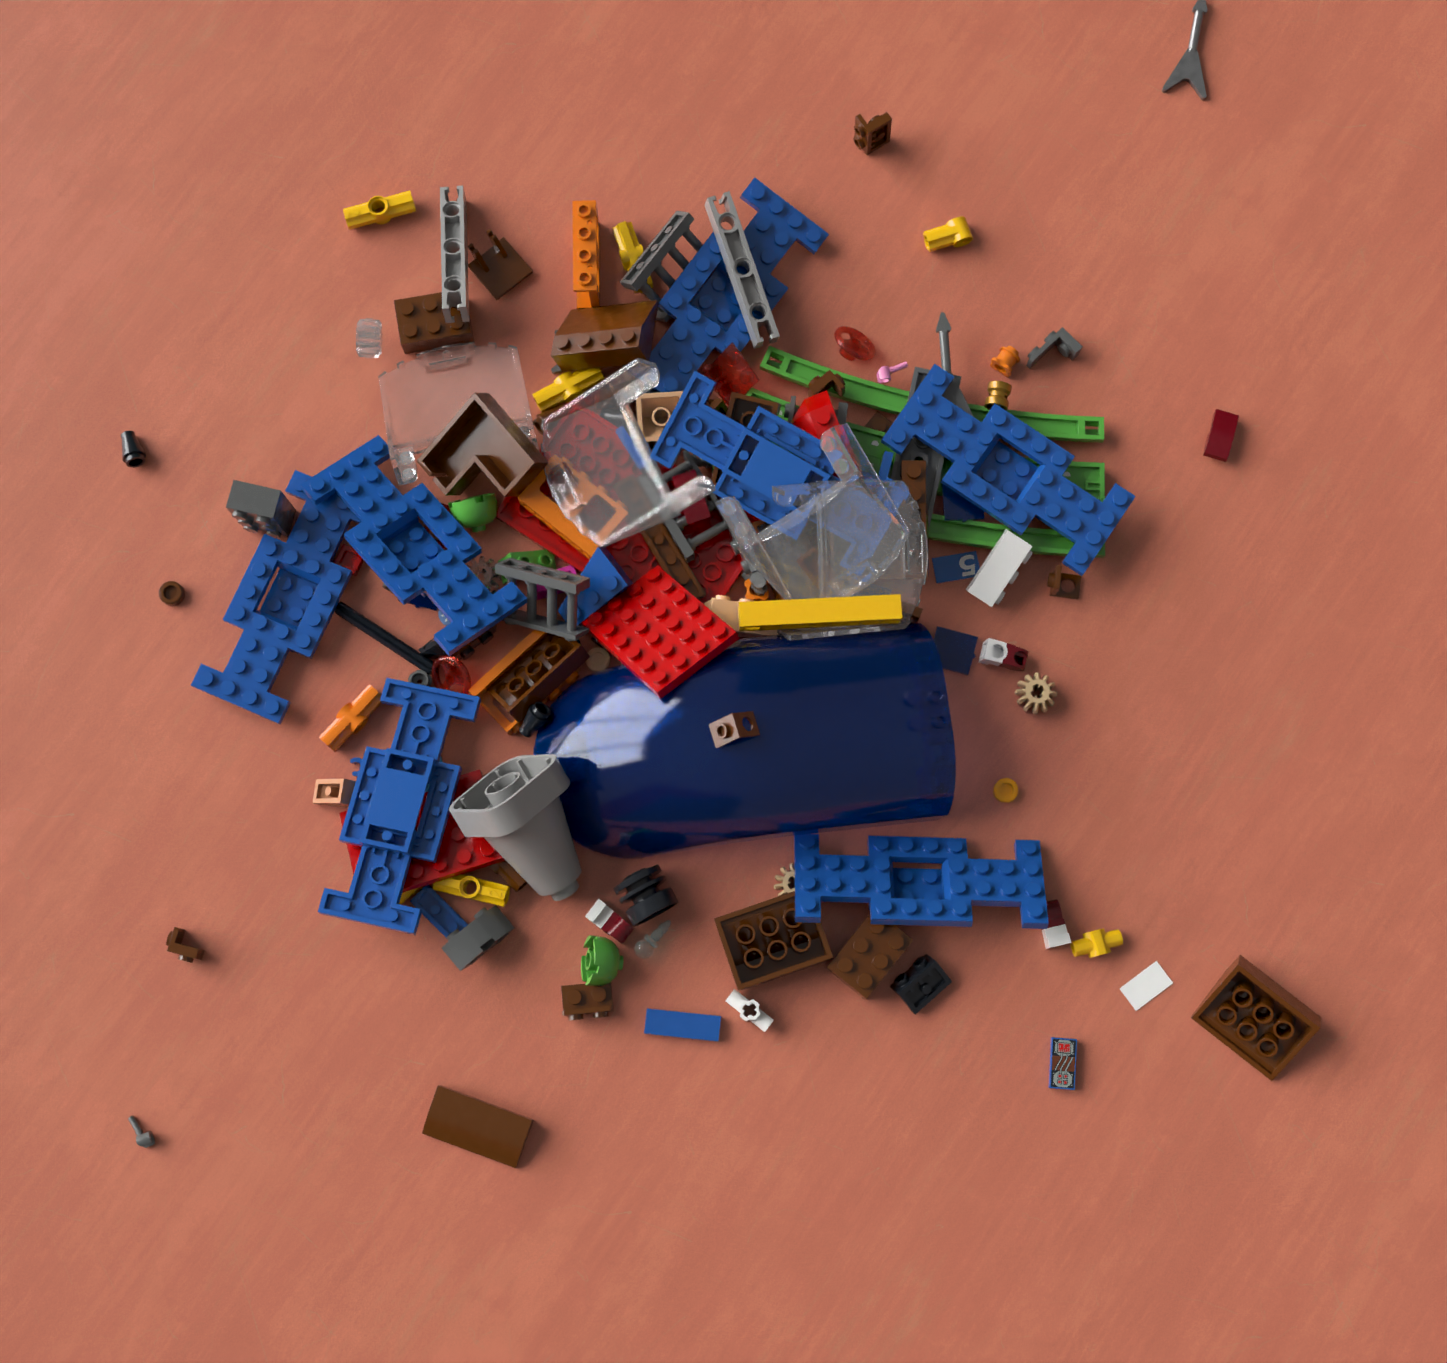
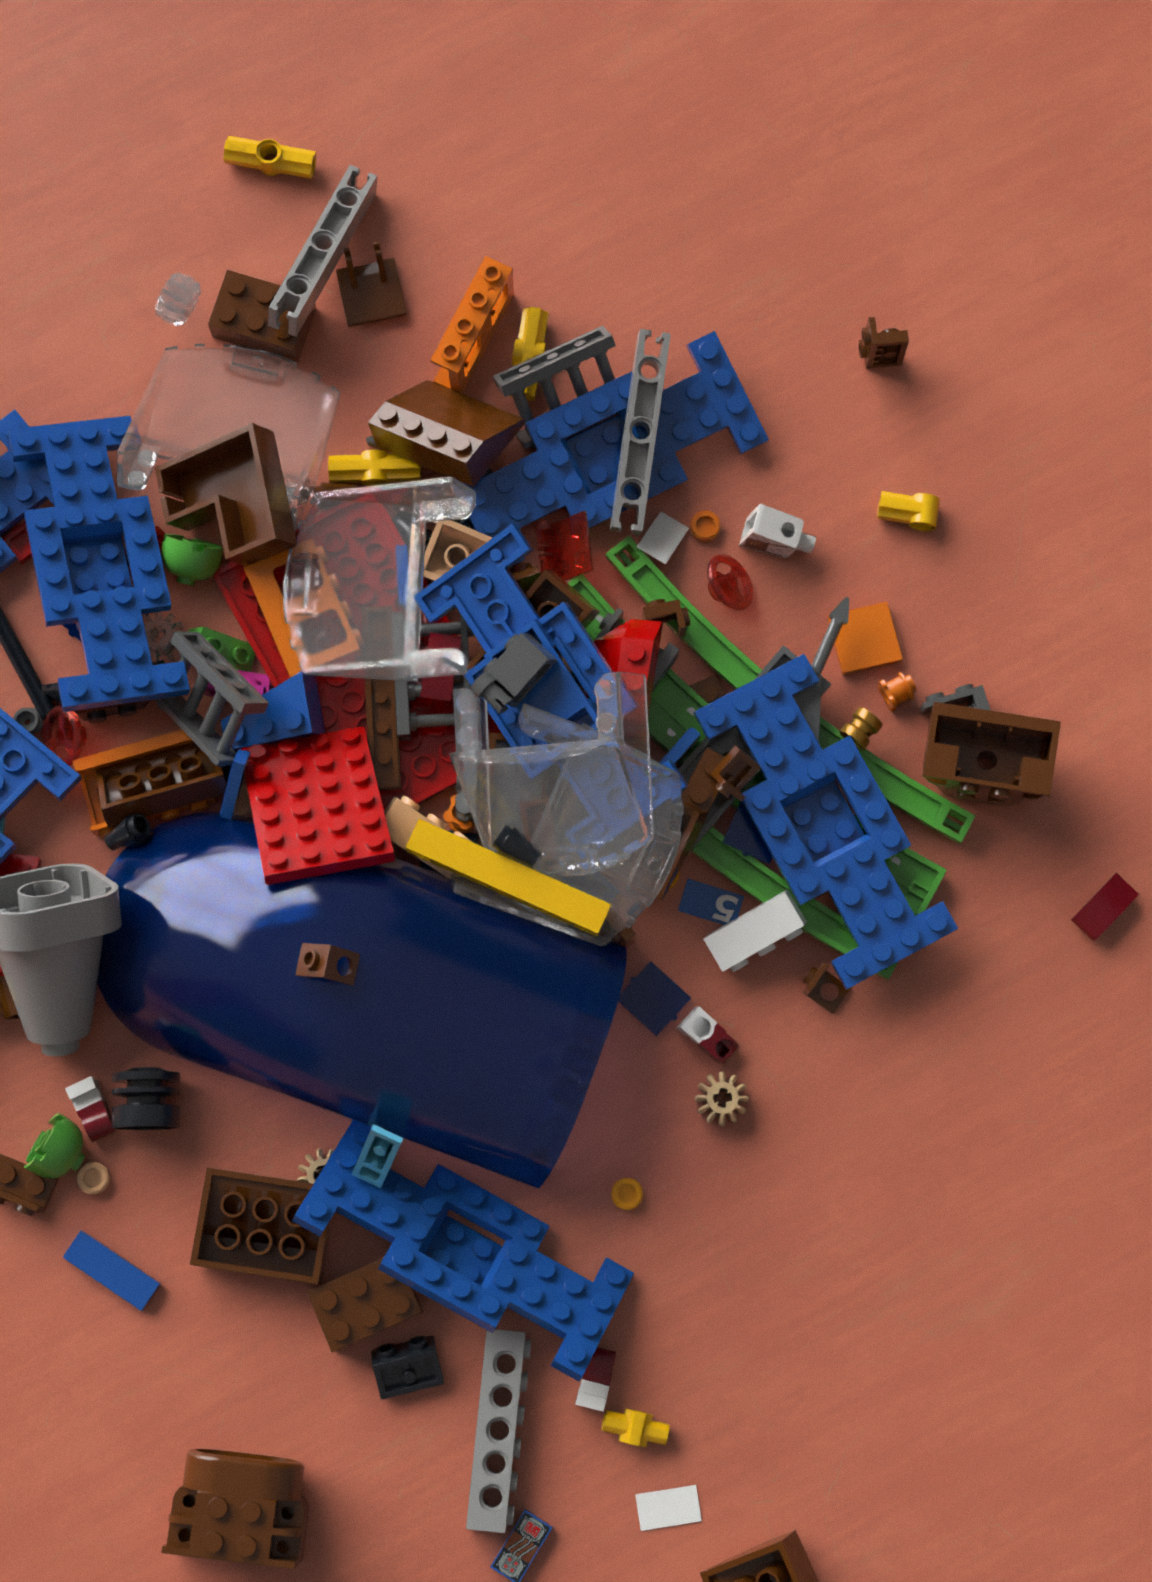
camera: 25 degrees right, 0 degrees up
(593, 647) = (234, 784): none -> blue tile
(635, 969) = (93, 1178): none -> light nougat tile
(645, 947) = (116, 1159): clear light blue bar -> none
(751, 470) = (514, 673): none -> dark grey hinge
(761, 1019) = (201, 1311): white axle -> none
(792, 336) = (662, 537): none -> white sticker
(814, 587) = (516, 847): none -> black cone
(815, 315) = (705, 526): none -> orange tile
(830, 845) = (377, 1156): none -> medium azure slope
(861, 1137) = (239, 1509): none -> reddish brown brick
(867, 294) = (775, 533): none -> white torso
(884, 372) = (744, 634): bright pink hand -> none
(931, 467) = (734, 773): none -> reddish brown bracket
(967, 336) = (867, 639): none -> orange tile
(1022, 1055) = (480, 1514): none -> light grey brick
(1109, 356) = (1017, 745): none -> reddish brown brick

